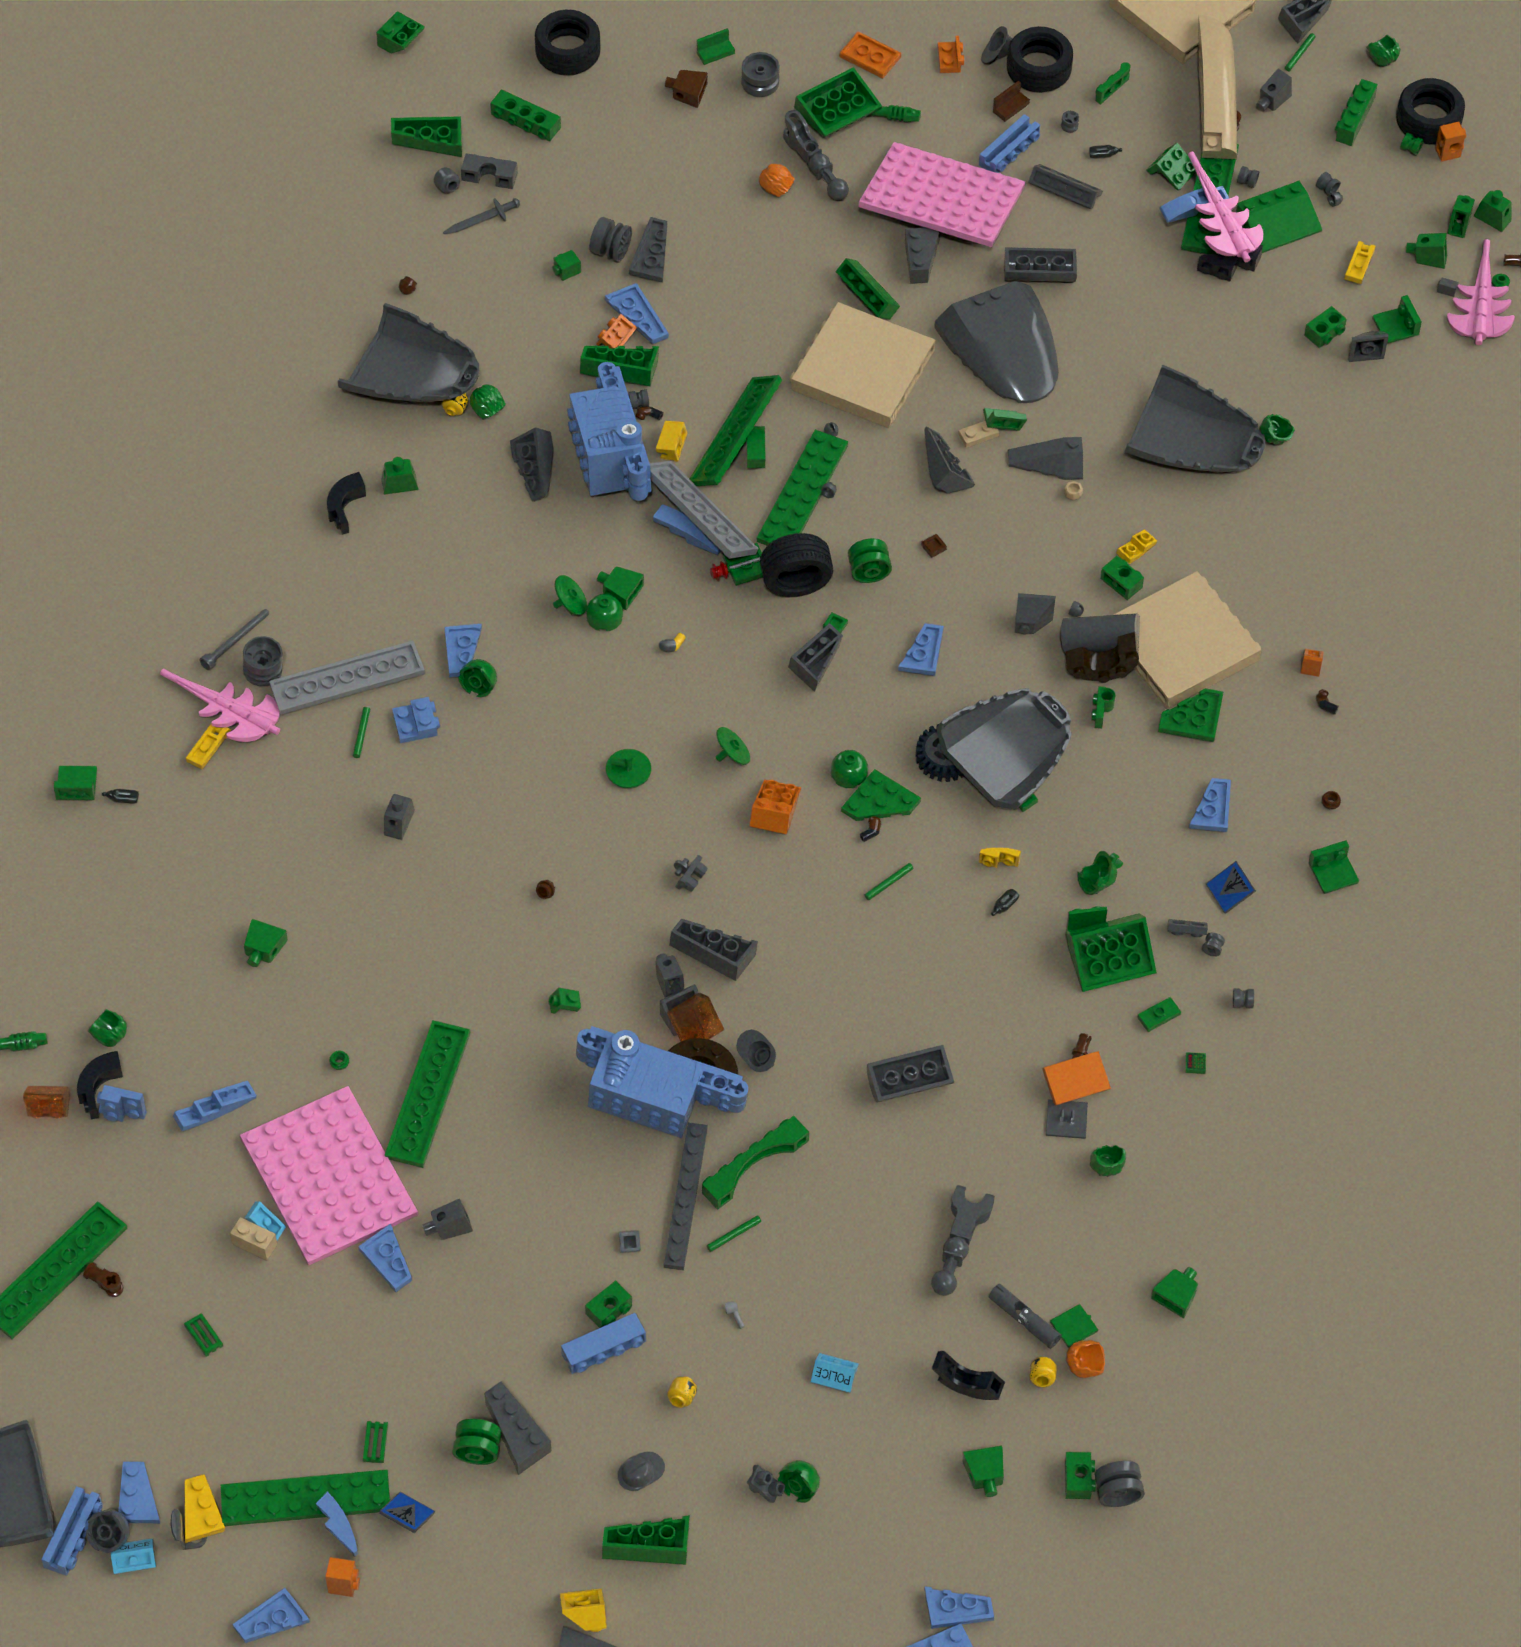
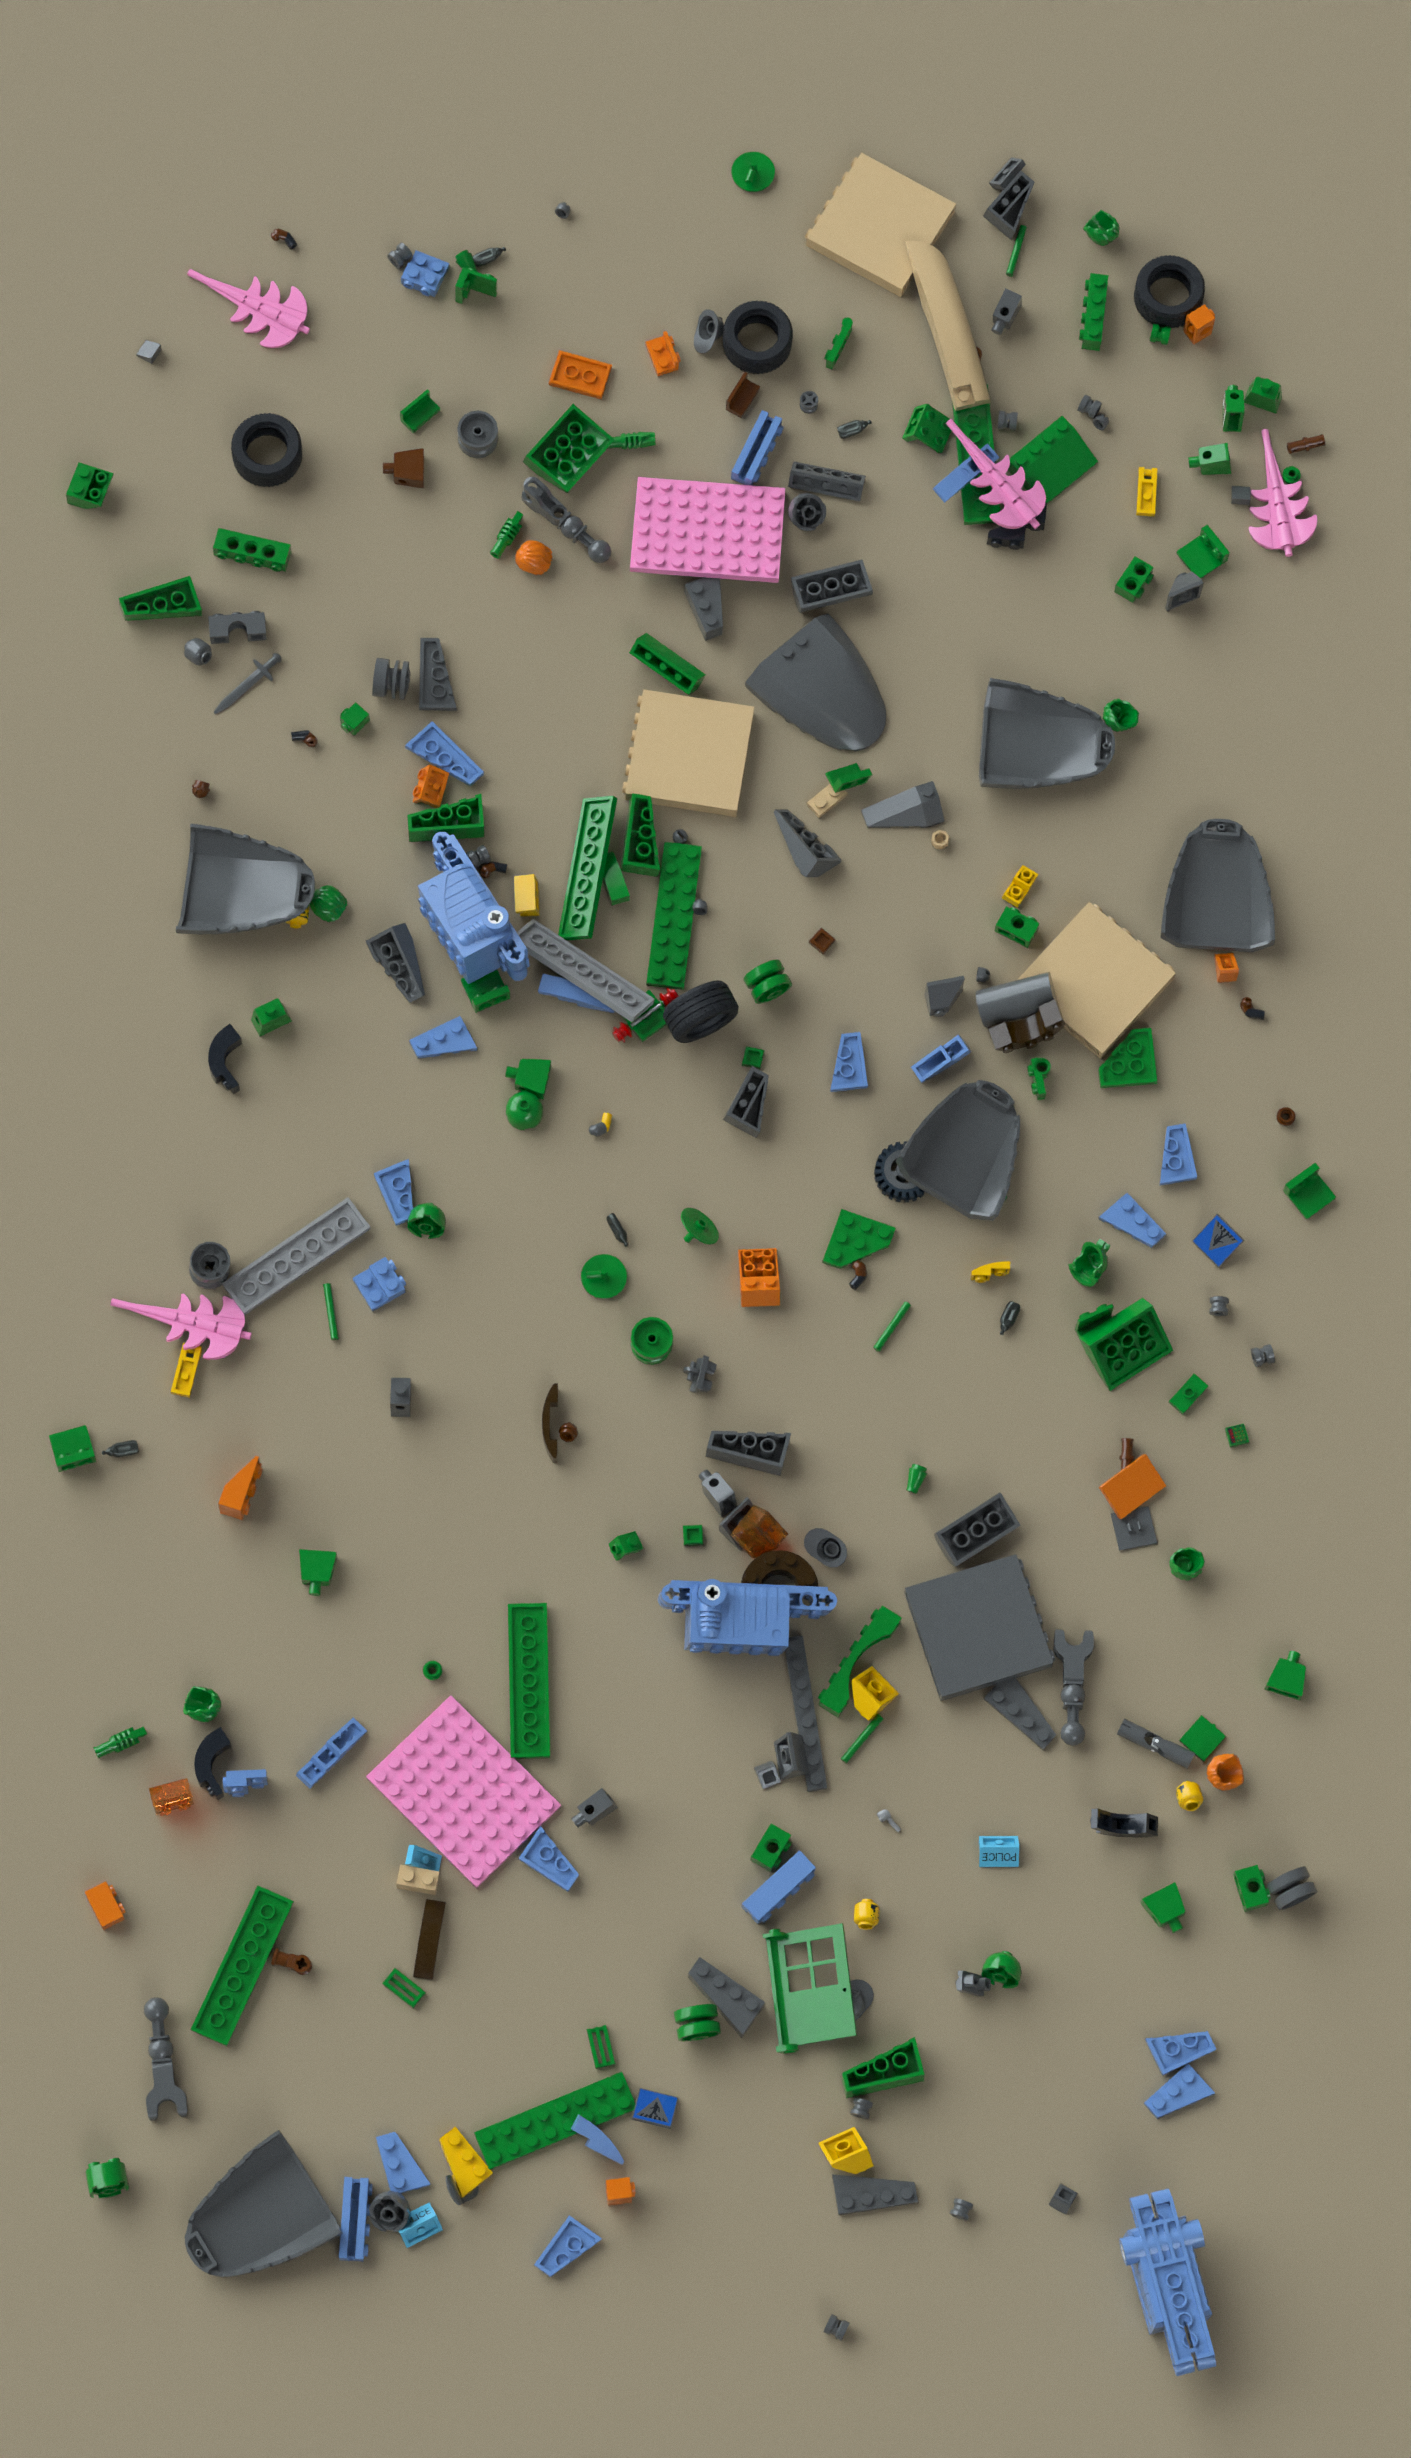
camera: 20 degrees left, 15 degrees up
(208, 660) = (153, 1276): dark grey piece -> none
(217, 853) = (237, 1492): none -> orange slope
(243, 1296) = (429, 1939): none -> dark brown slope
(518, 269) = (306, 736): none -> arm
(538, 858) = (551, 1401): none -> dark brown slope
(553, 537) = (444, 1039): none -> medium blue wing
(569, 595) = (486, 1104): green shield -> none
(604, 1467) = (816, 2012): none -> door
(605, 507) = (486, 991): none -> green bracket
(613, 1571) = (861, 2108): none -> dark grey wheel
(633, 1010) = (692, 1535): none -> green tile
(653, 830) = (649, 1330): none -> green wheel
(655, 731) = (616, 1227): none -> pearl dark grey piece
(658, 1227) = (790, 1756): none -> dark grey slope
(757, 1193) = (872, 1693): none -> yellow slope
(759, 158) = (507, 535): none -> green hinge
(789, 425) = (640, 846): none -> green wedge
(849, 769) = (817, 1216): green cylinder -> none
(866, 1016) = (915, 1478): none -> green cone
(883, 1163) = (979, 1627): none -> dark grey brick
(899, 1250) = (1018, 1708): none -> dark grey wing
(1013, 668) = (941, 1058): none -> medium blue slope
(1038, 200) = (807, 511): none -> dark grey cylinder
(1154, 851) = (1133, 1220): none -> medium blue wing
(1179, 927) = (1189, 1294): dark grey plate -> none
(1323, 595) = (1219, 892): none -> dark grey windscreen

